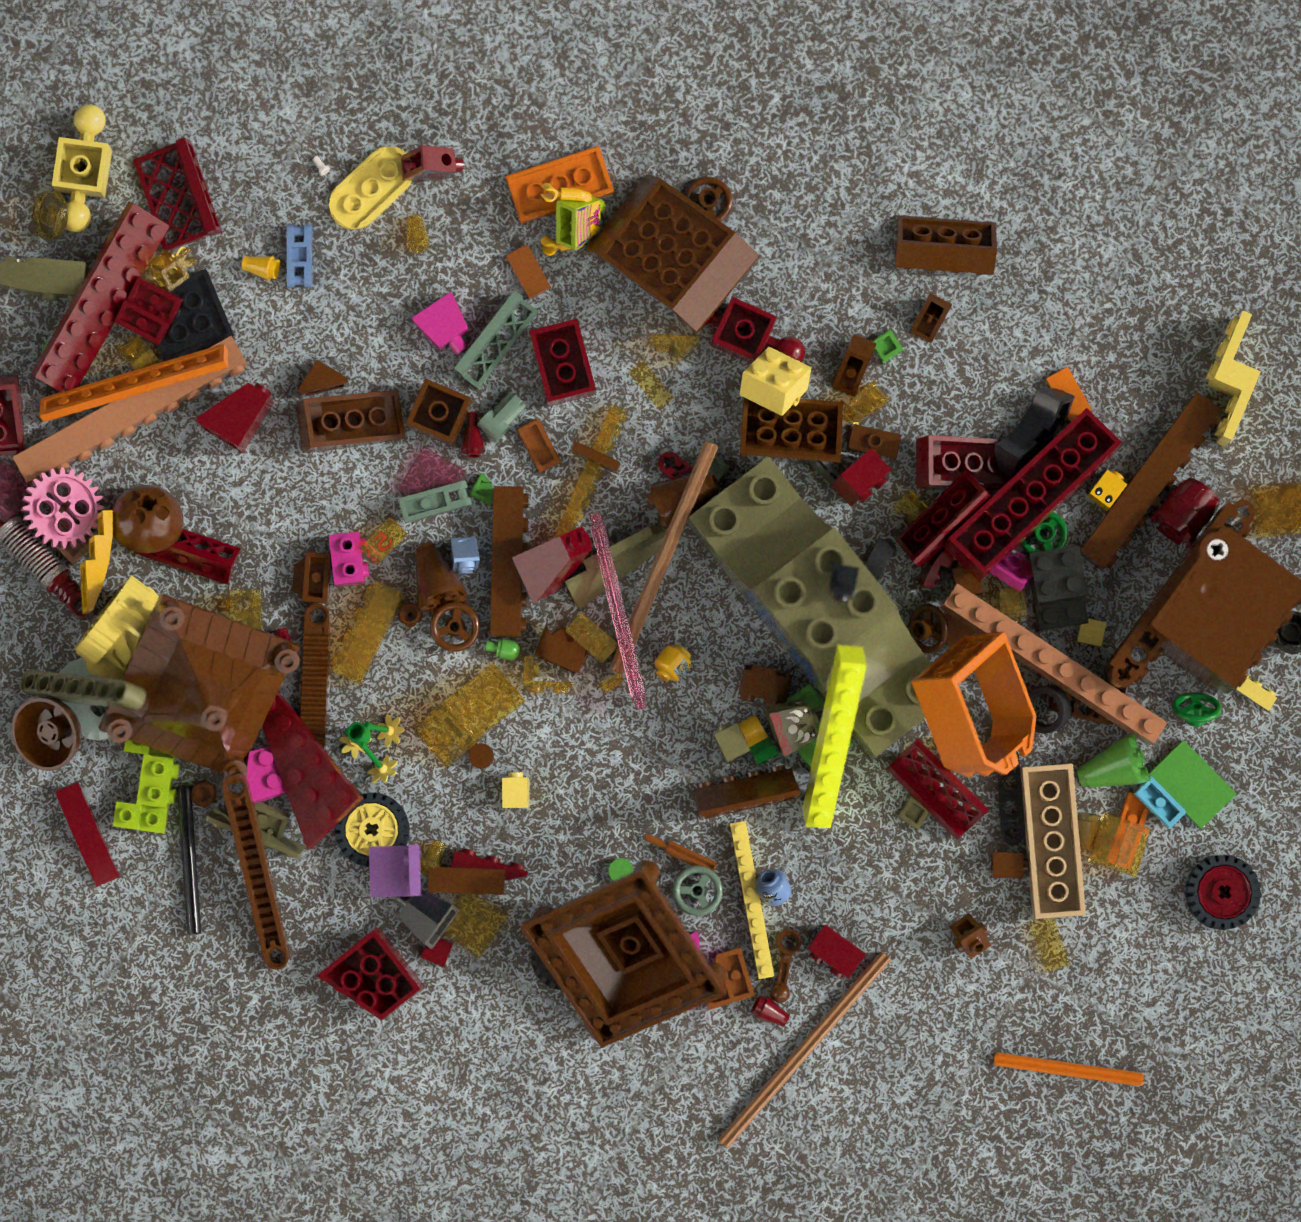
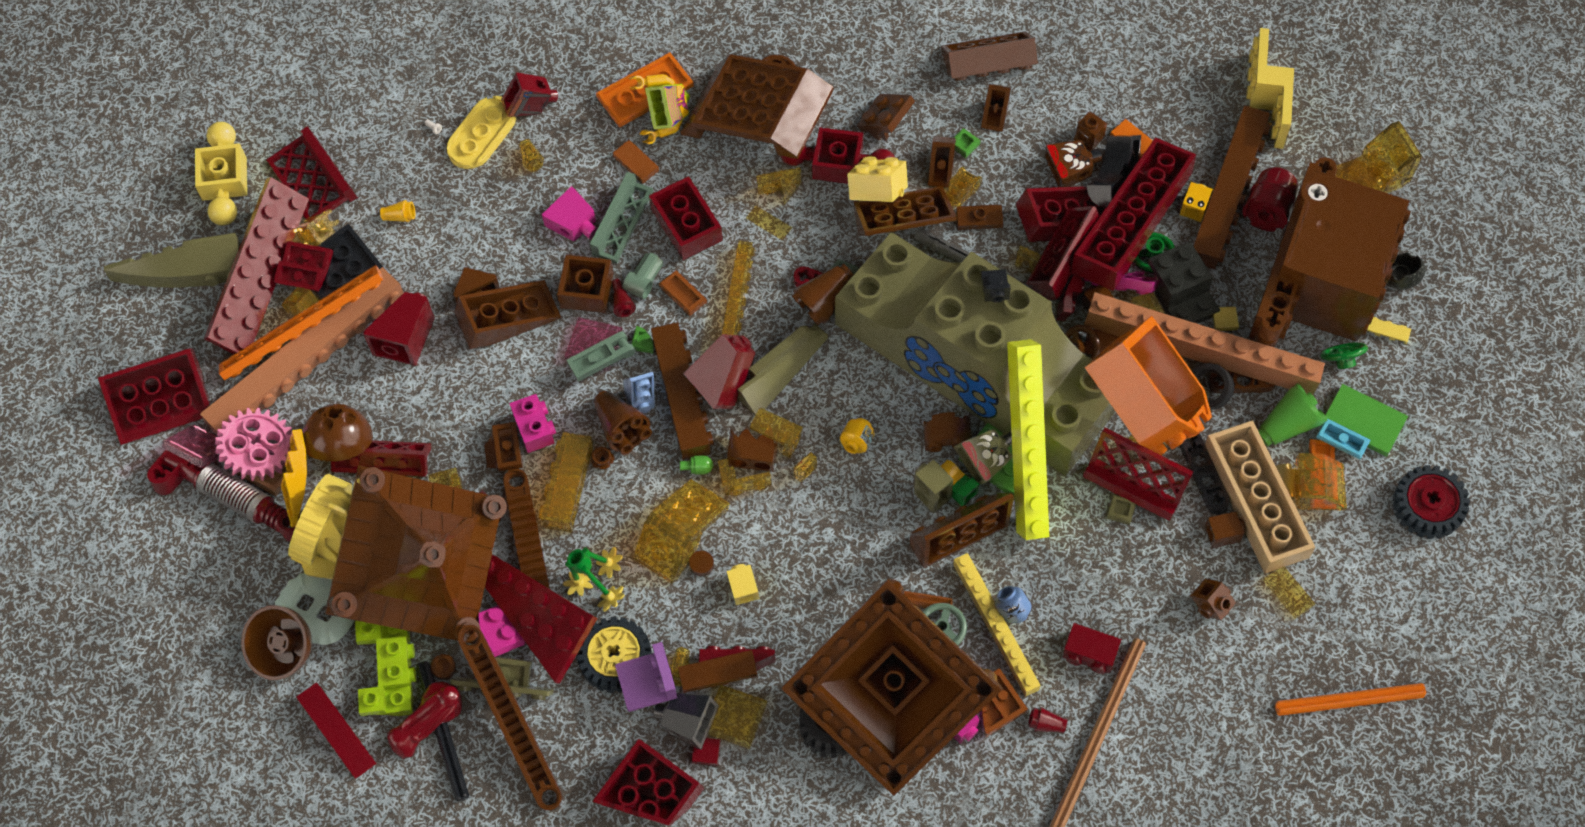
camera: 10 degrees left, 20 degrees down
(50, 215) = (199, 214): clear yellow tile -> none
(83, 689) = (305, 578): olive beam -> none
(191, 838) = (438, 706): none -> dark red hair
(299, 255) = (430, 196): medium blue plate -> none
(383, 541) = (561, 399): clear yellow tile -> none
(468, 639) = (650, 462): reddish brown piece -> none
(596, 457) = (737, 282): reddish brown tile -> none
(617, 611) = (794, 401): clear pink piece -> none
(668, 547) = (822, 342): medium nougat axle -> none
(780, 991) = (1049, 700): reddish brown piece -> none
(810, 305) = (881, 124): none -> reddish brown piece
(861, 477) = (979, 238): dark red brick -> none
(991, 405) = (1071, 162): none -> reddish brown torso
(1023, 373) = (1090, 130): none -> reddish brown window

